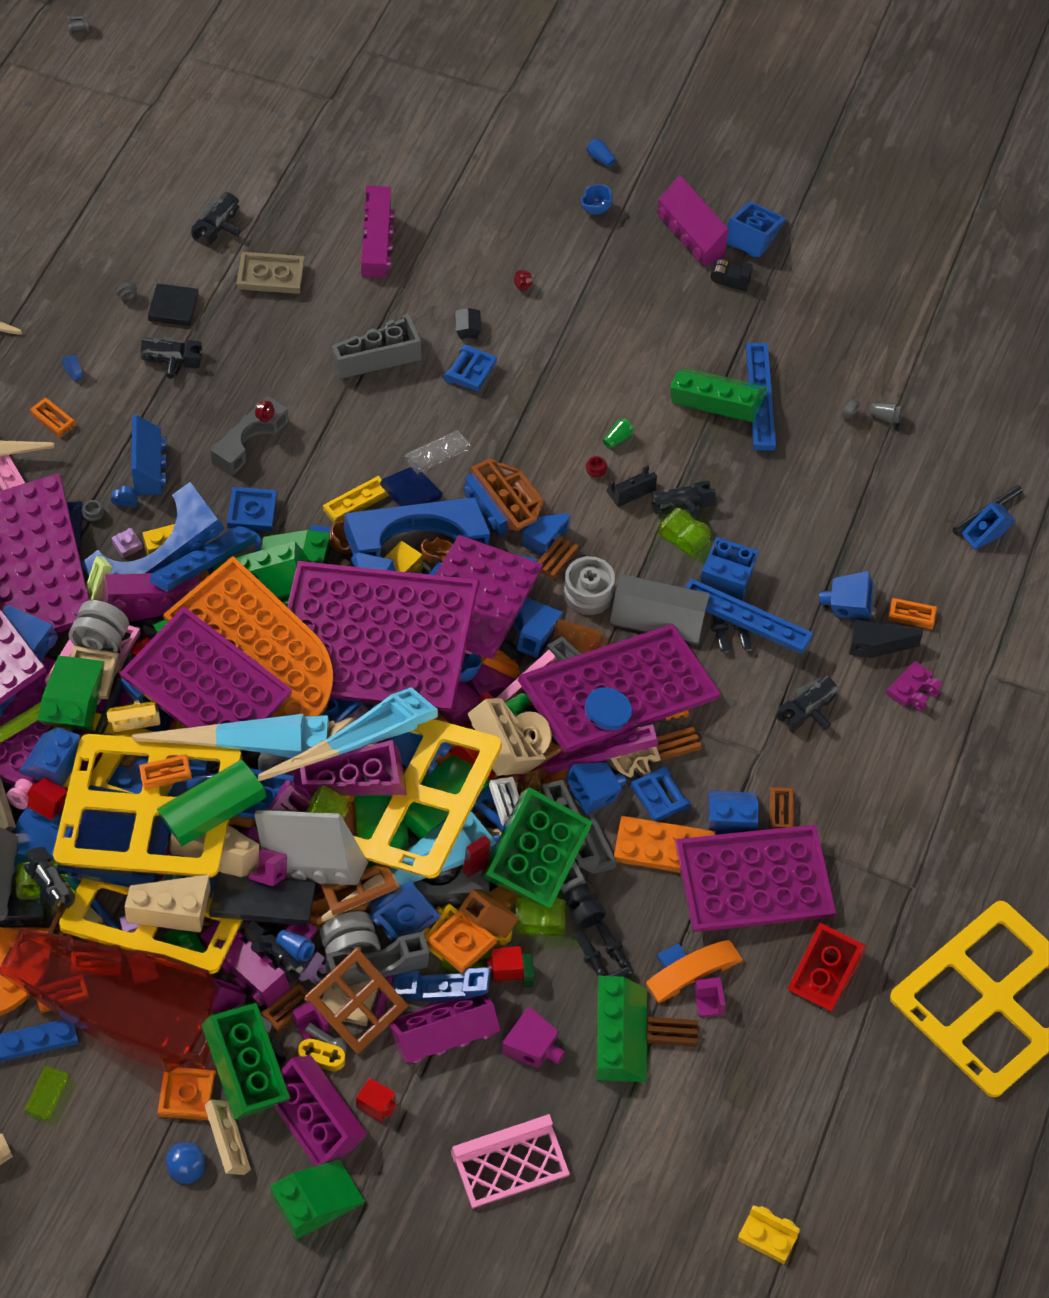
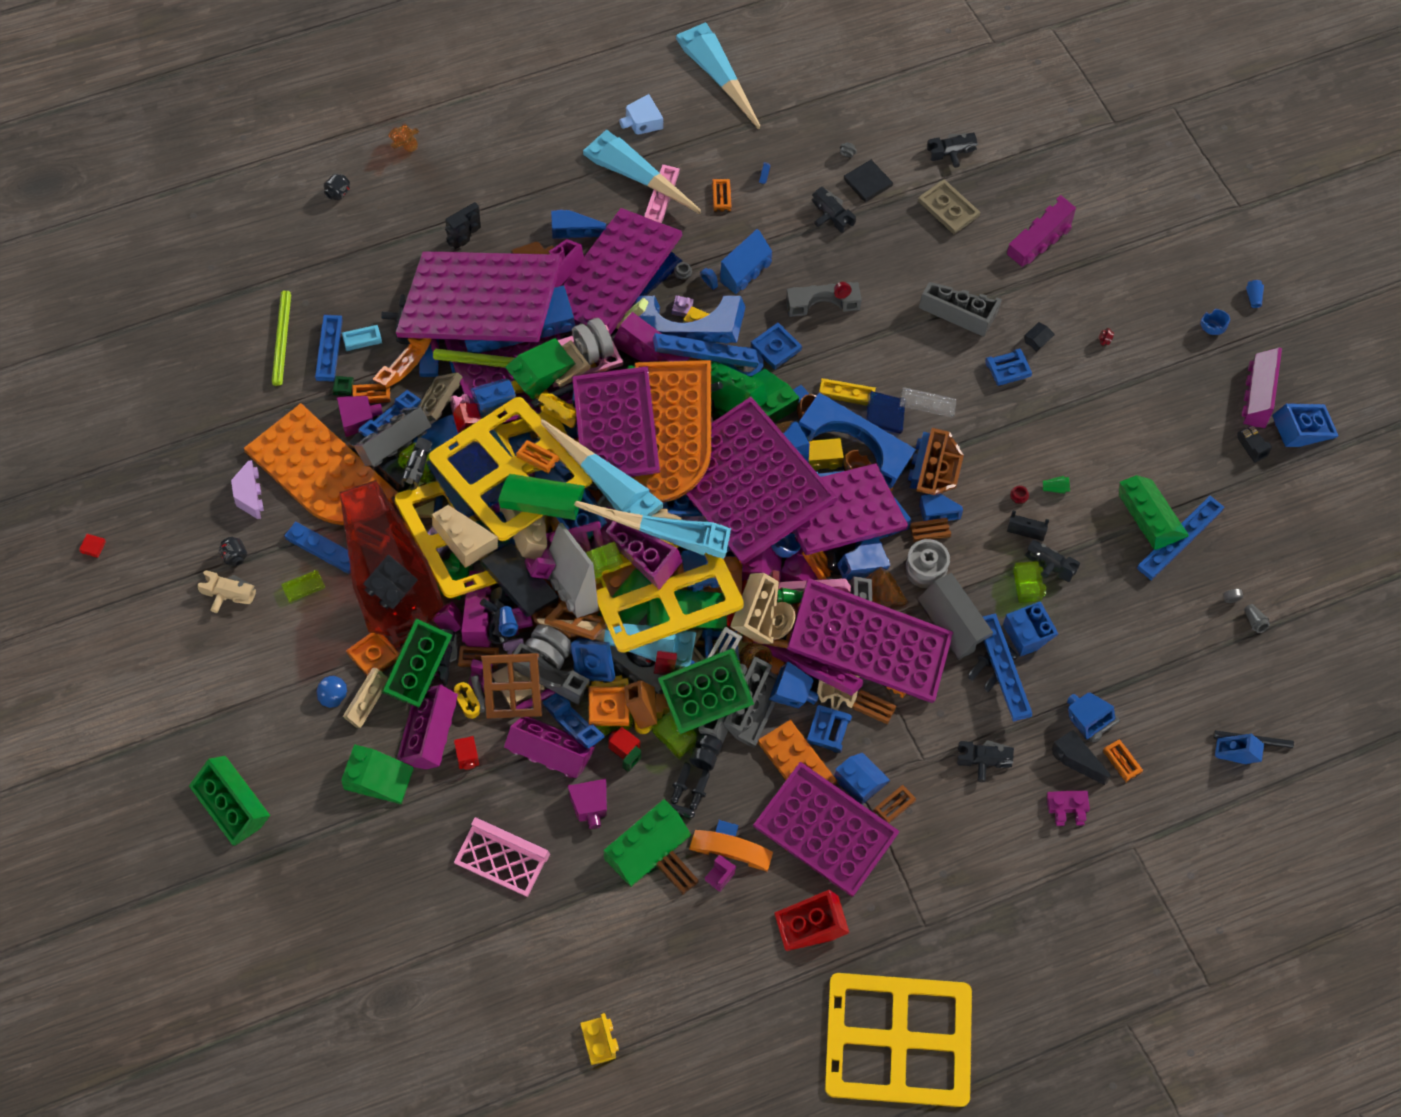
camera: 45 degrees right, 5 degrees up
(140, 1010) = (389, 582): none -> black plate
(608, 708) = (842, 645): blue tile -> none

